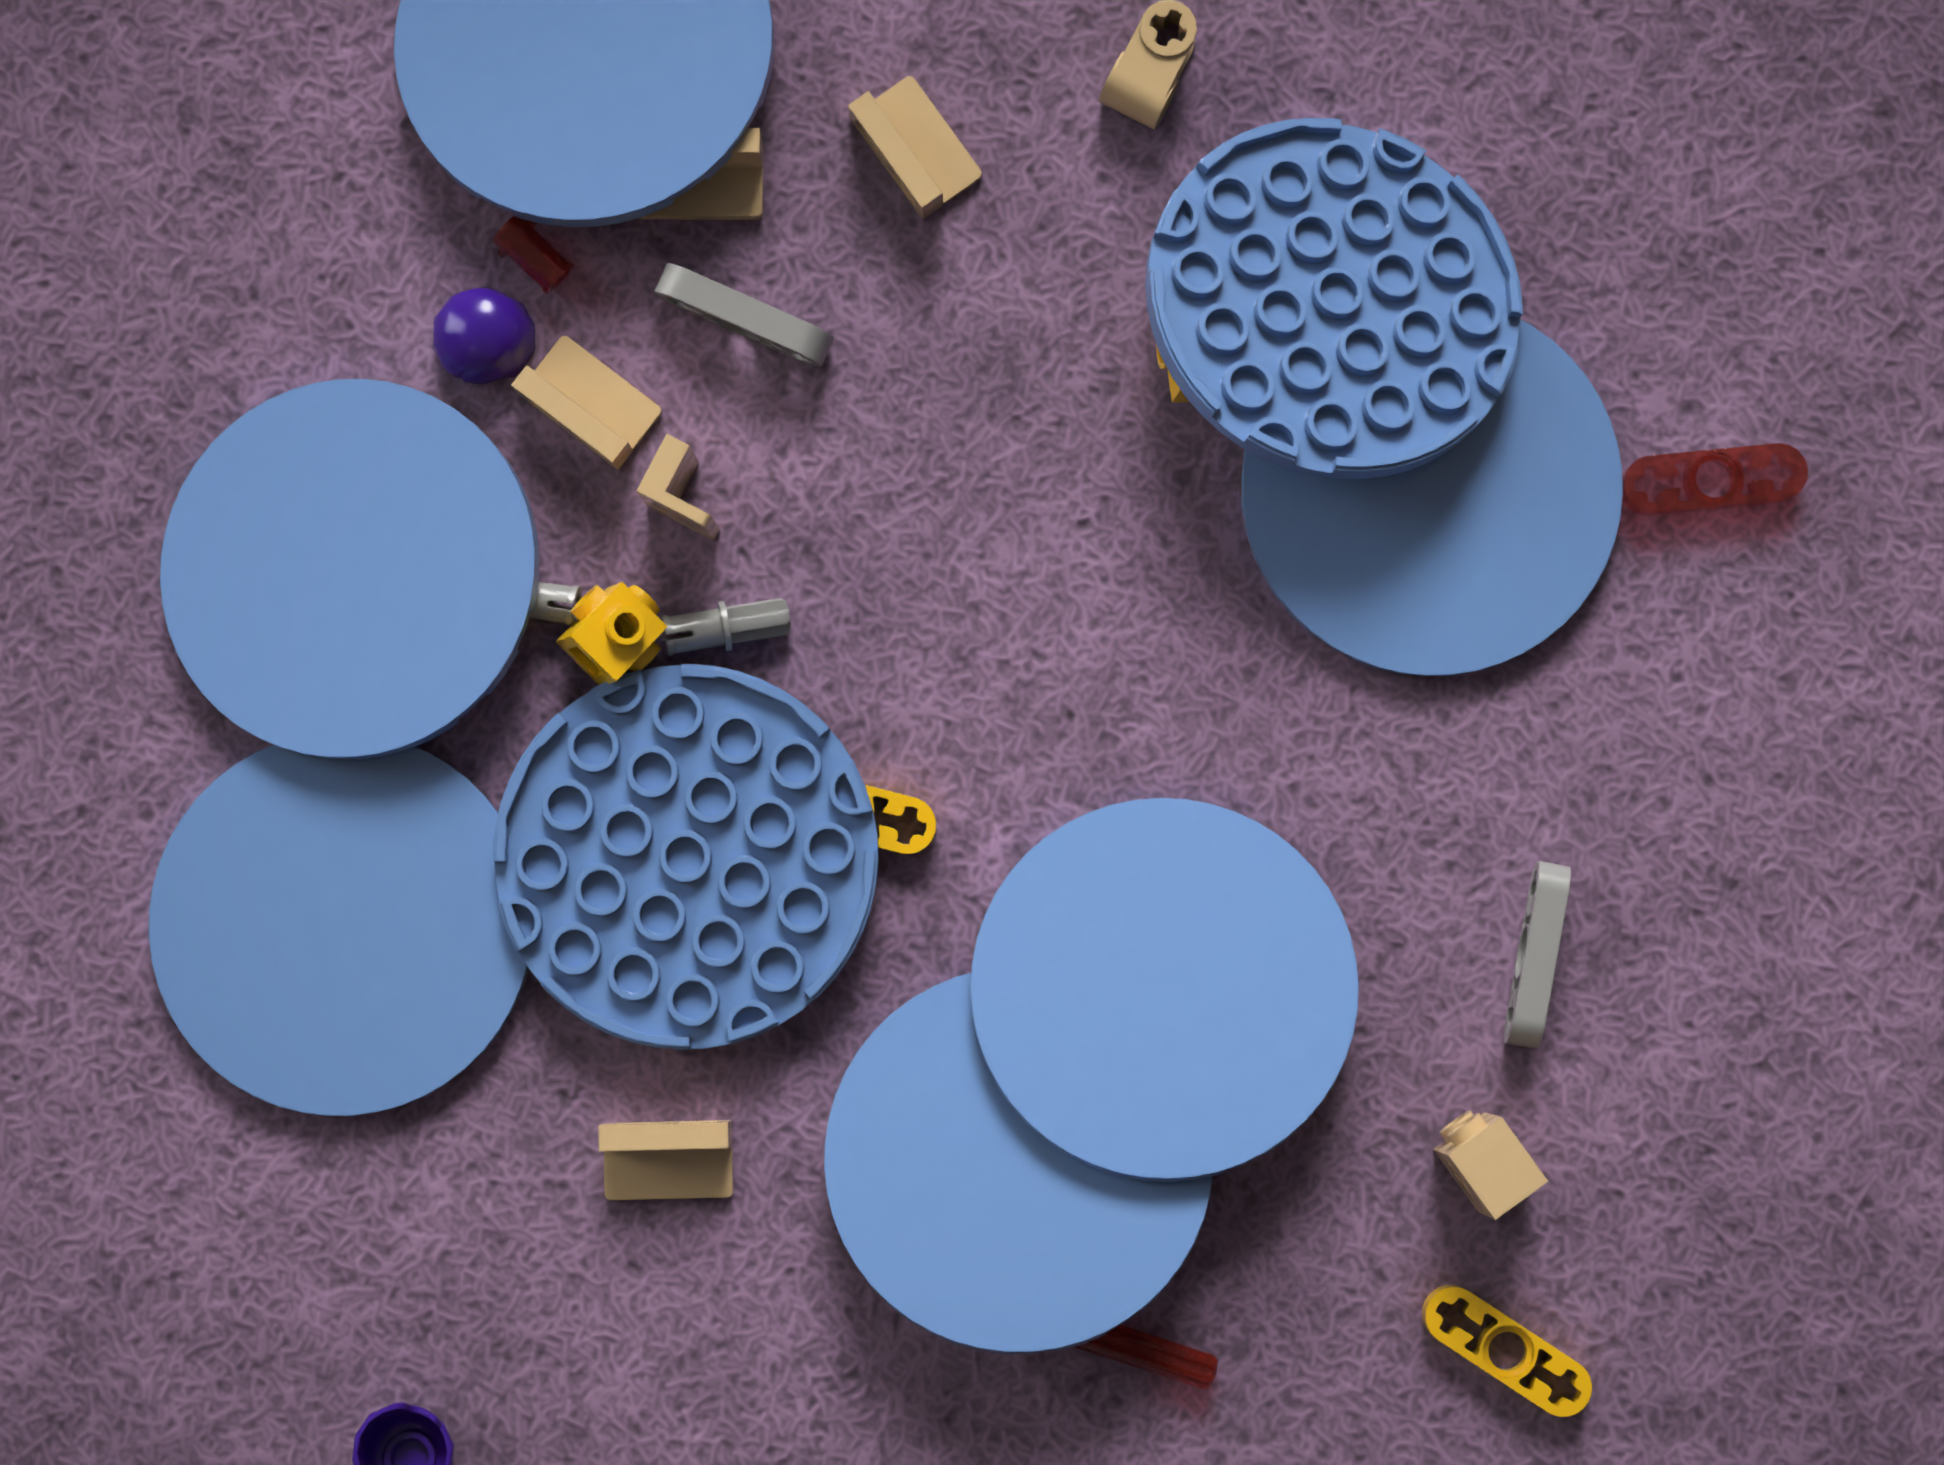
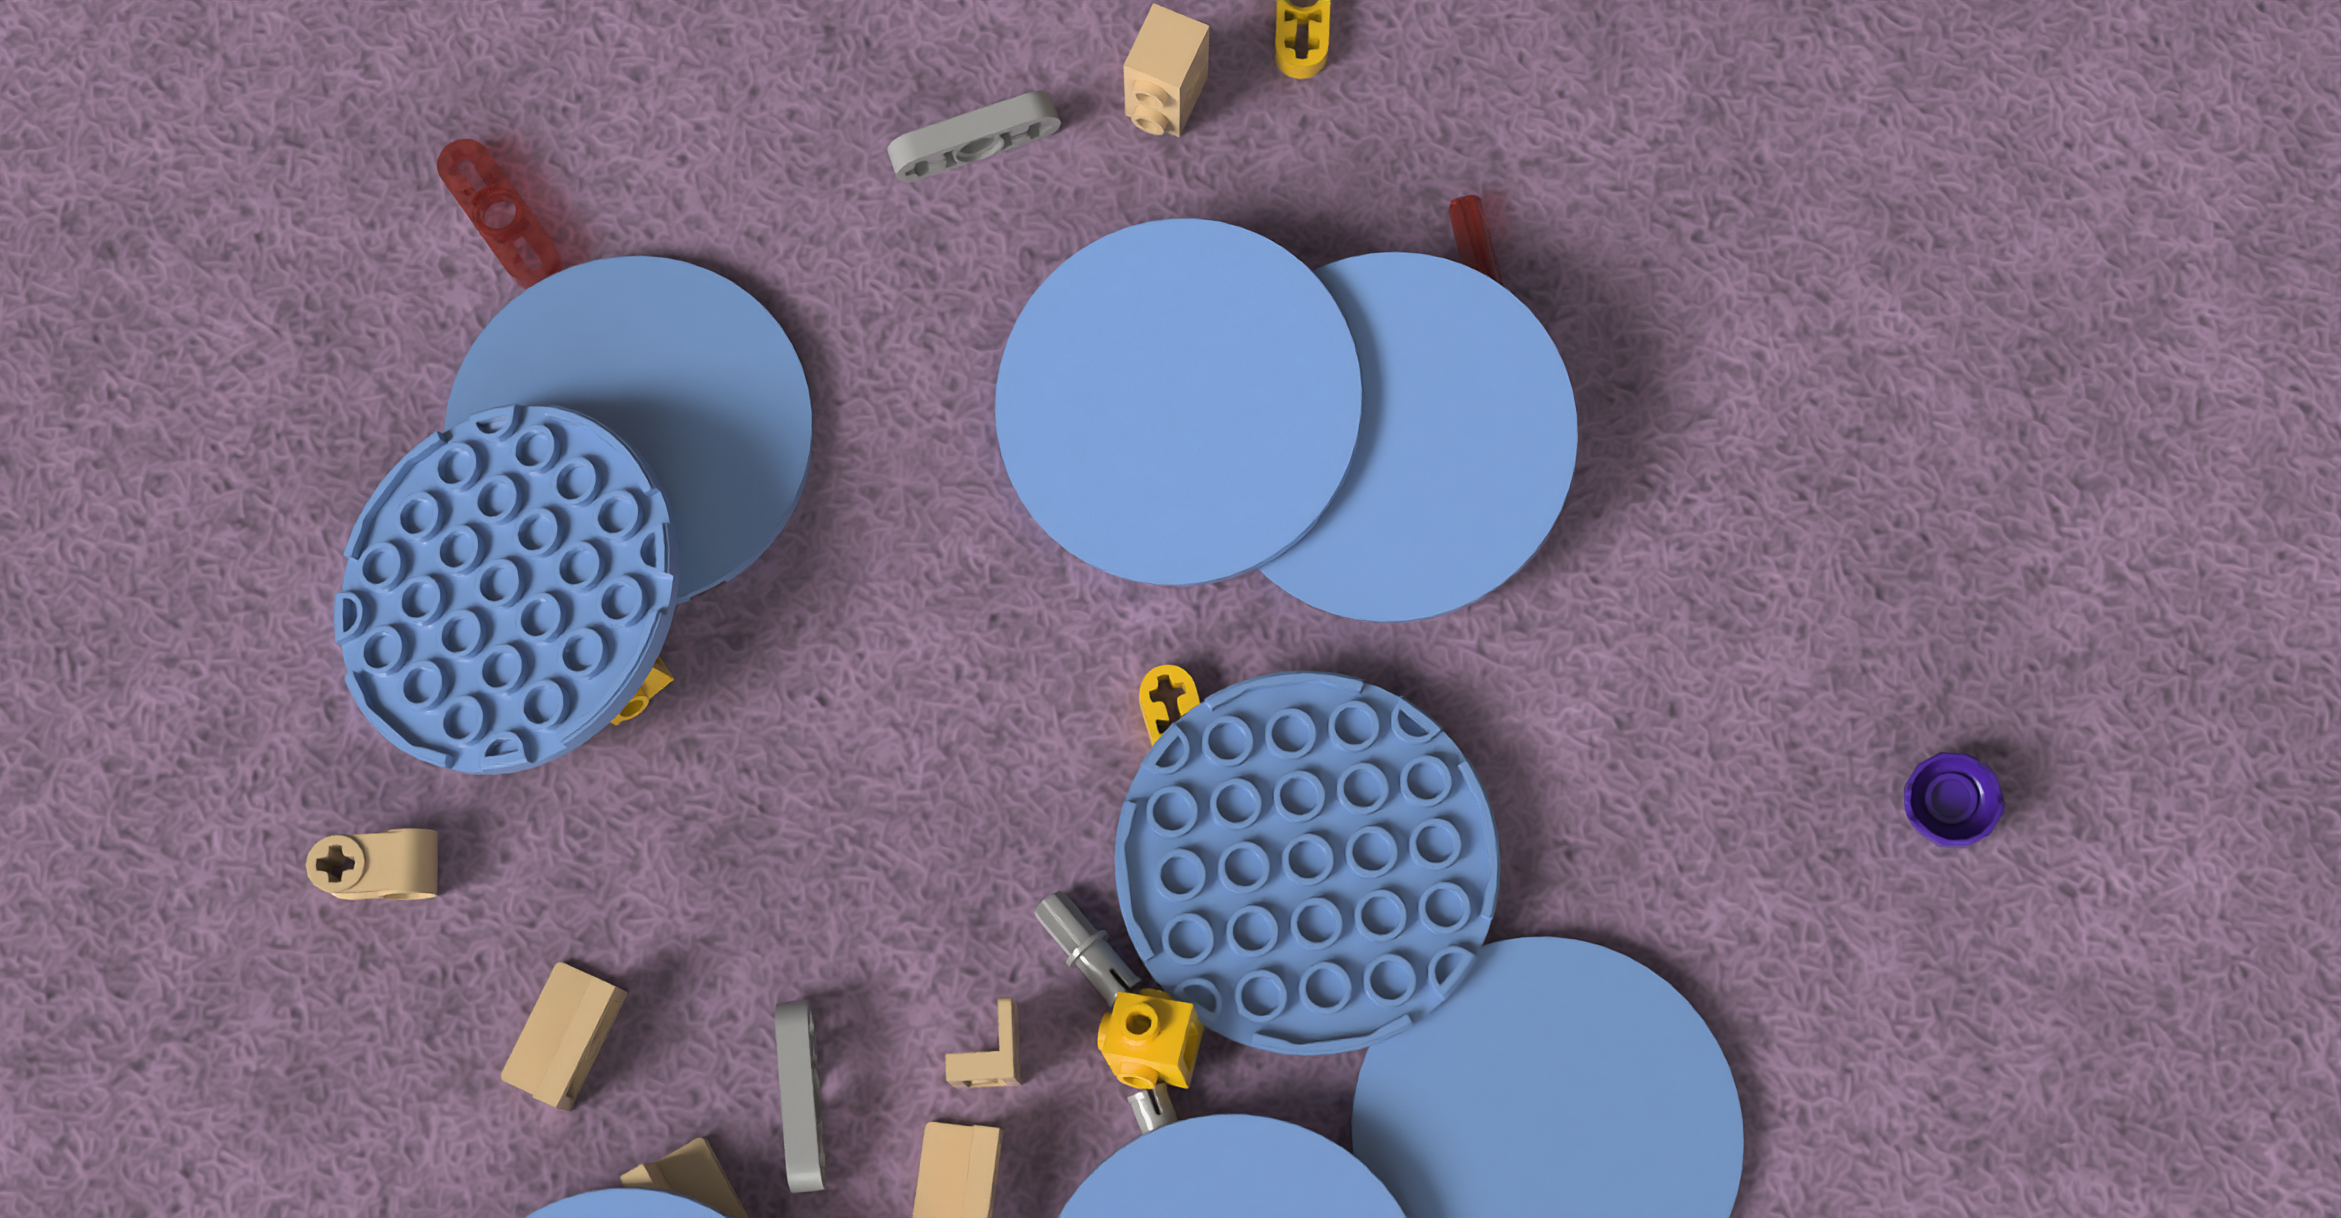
camera: 120 degrees left, 10 degrees down
(667, 1159) = (1568, 731): tan panel -> none

